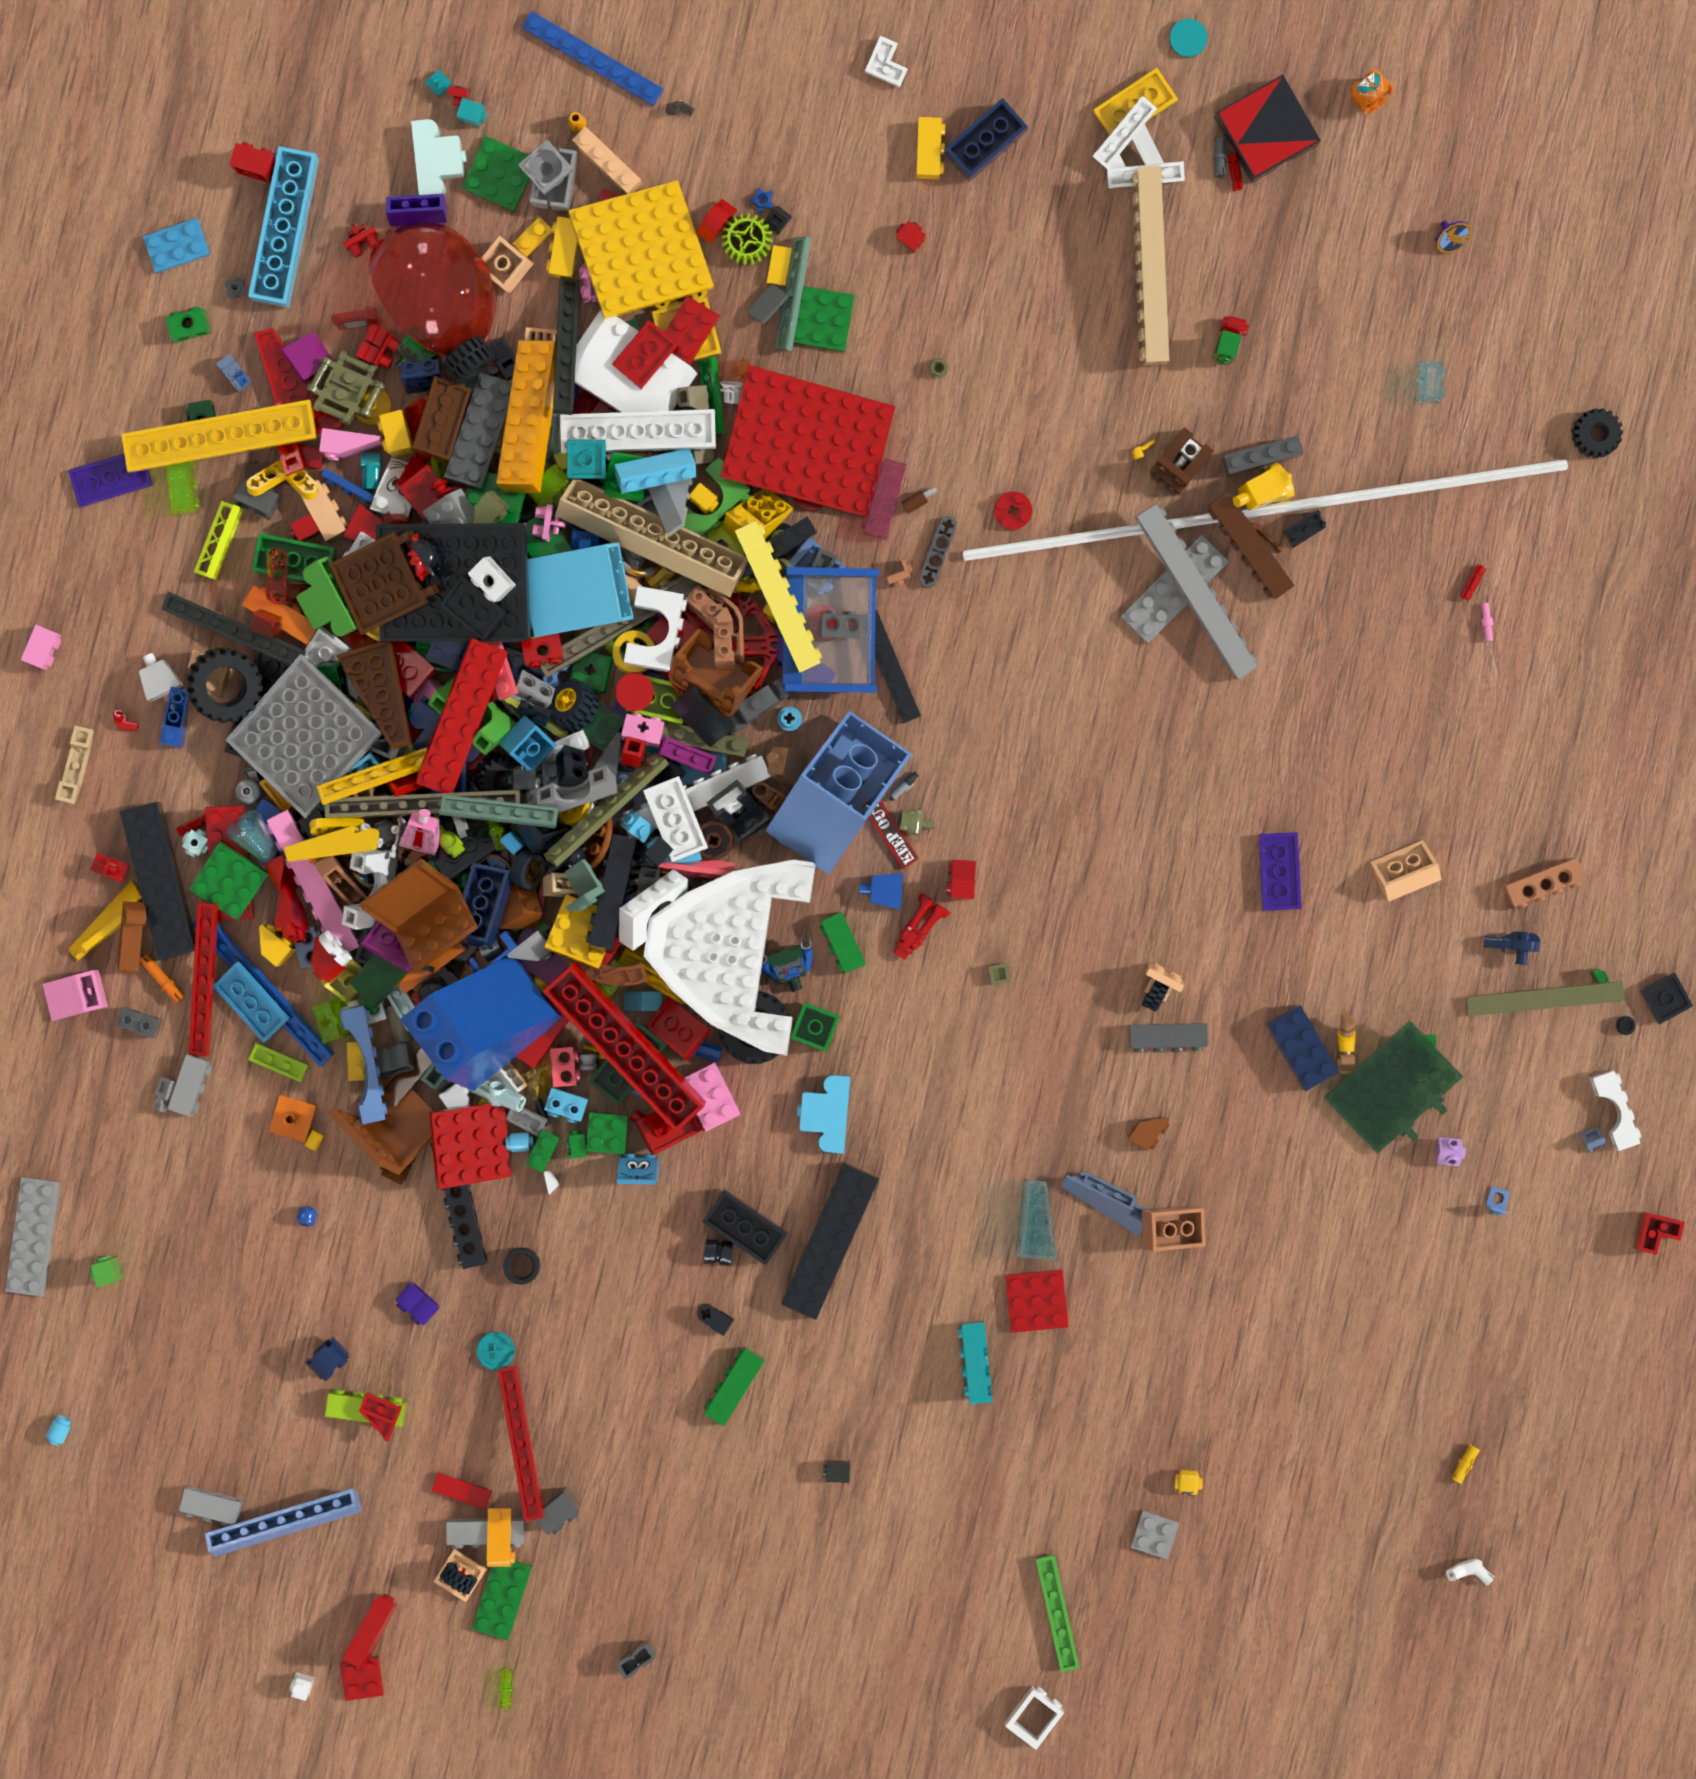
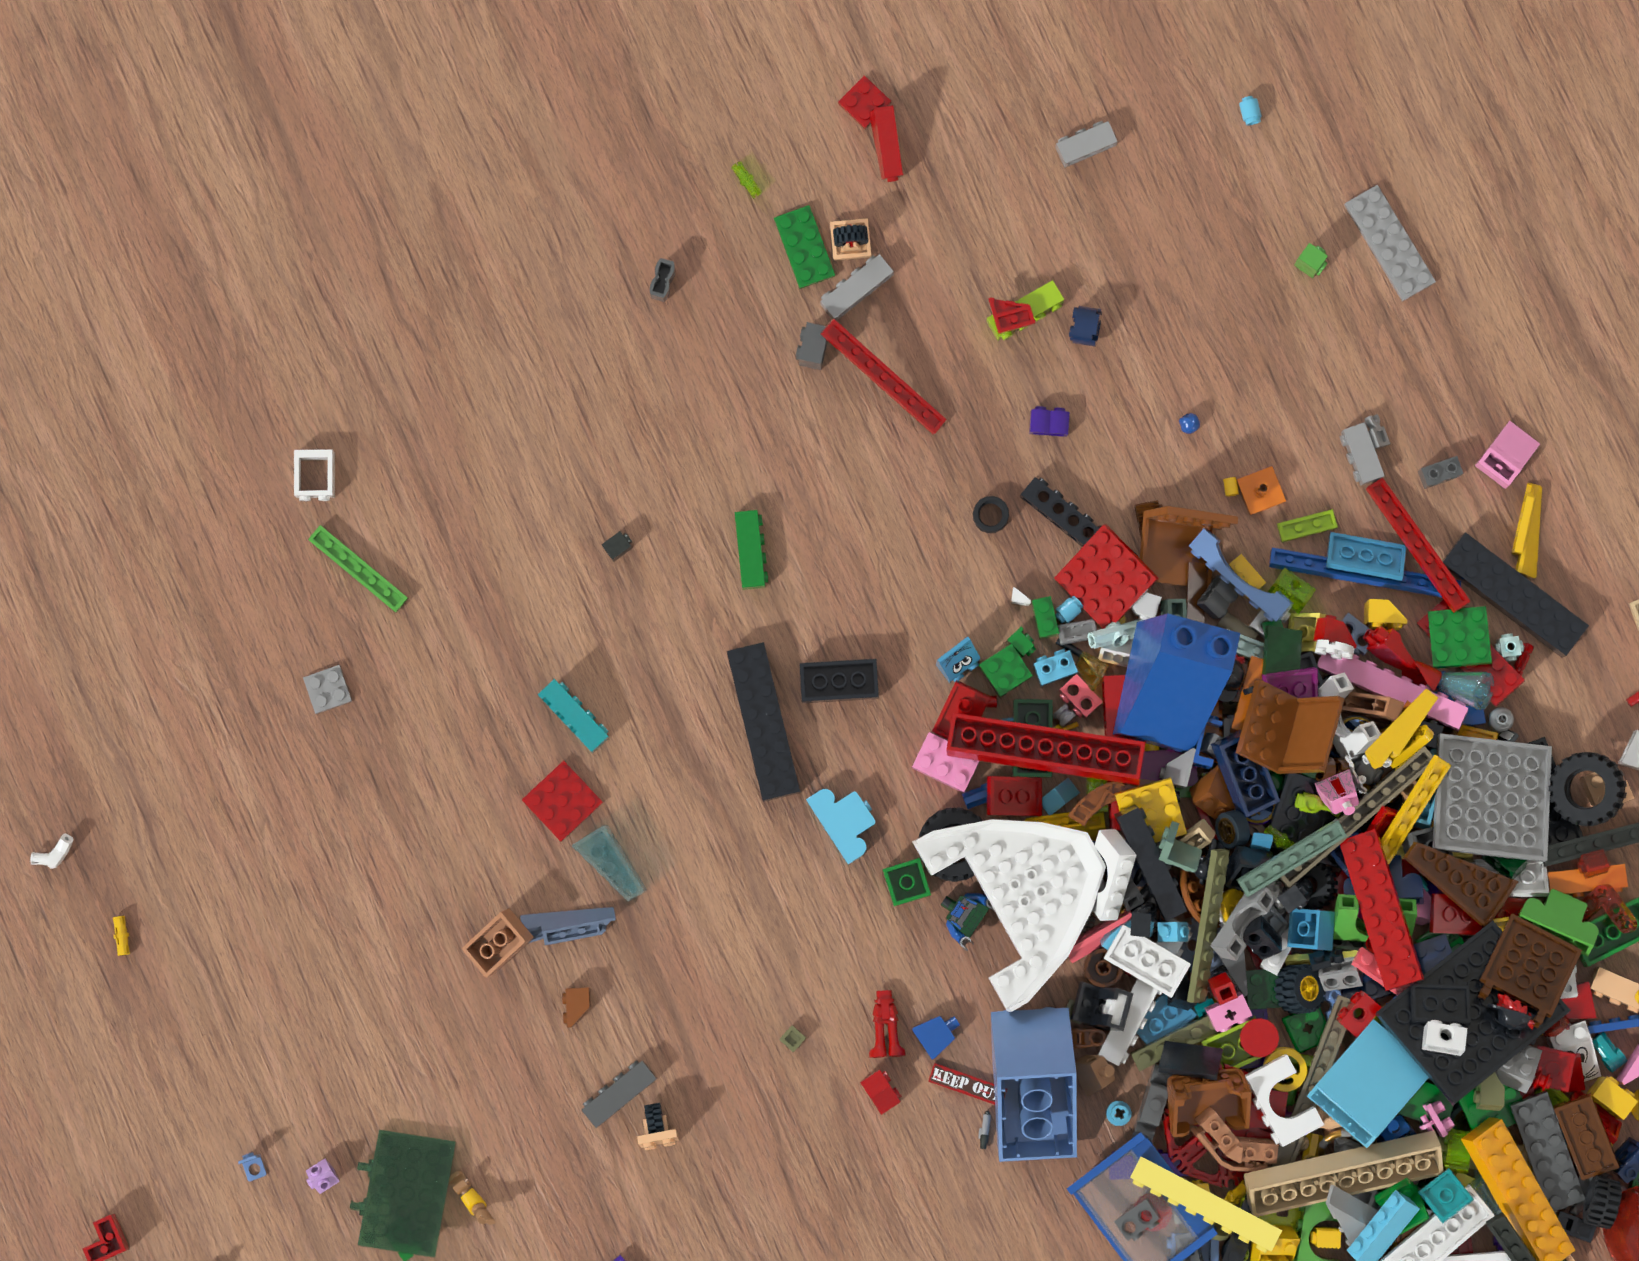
camera: 145 degrees right, 5 degrees down
(110, 867) = (1561, 575): red hips -> none
(130, 936) = (1509, 546): dark orange beam -> none
(161, 978) = (1450, 520): orange pin -> none
(175, 718) = (1604, 732): blue slope -> none
(283, 1522) = (1020, 174): medium blue brick -> none
(301, 1686) = (906, 60): white brick -> none
(304, 529) = (1623, 963): red brick -> none
(461, 826) = (1311, 822): light grey plate -> none
(462, 1490) = (900, 304): red tile -> none
(495, 1350) = (959, 433): teal tile -> none
(499, 1538) = (842, 290): light orange door -> none
(585, 403) = (1481, 1240): clear red plate -> none
(686, 755) = (1178, 1019): magenta tile -> none
(717, 1320) = (802, 590): black piece -> none
(718, 1252) = (844, 644): black wheel -> none
(842, 943) = (936, 965): green brick -> none
(893, 674) = (1063, 1214): black plate -> none
(912, 821) = (956, 1106): olive piece -> none
(1188, 1482) = (332, 750): yellow head -> none
(1301, 1047) = (504, 1167): dark blue brick -> none

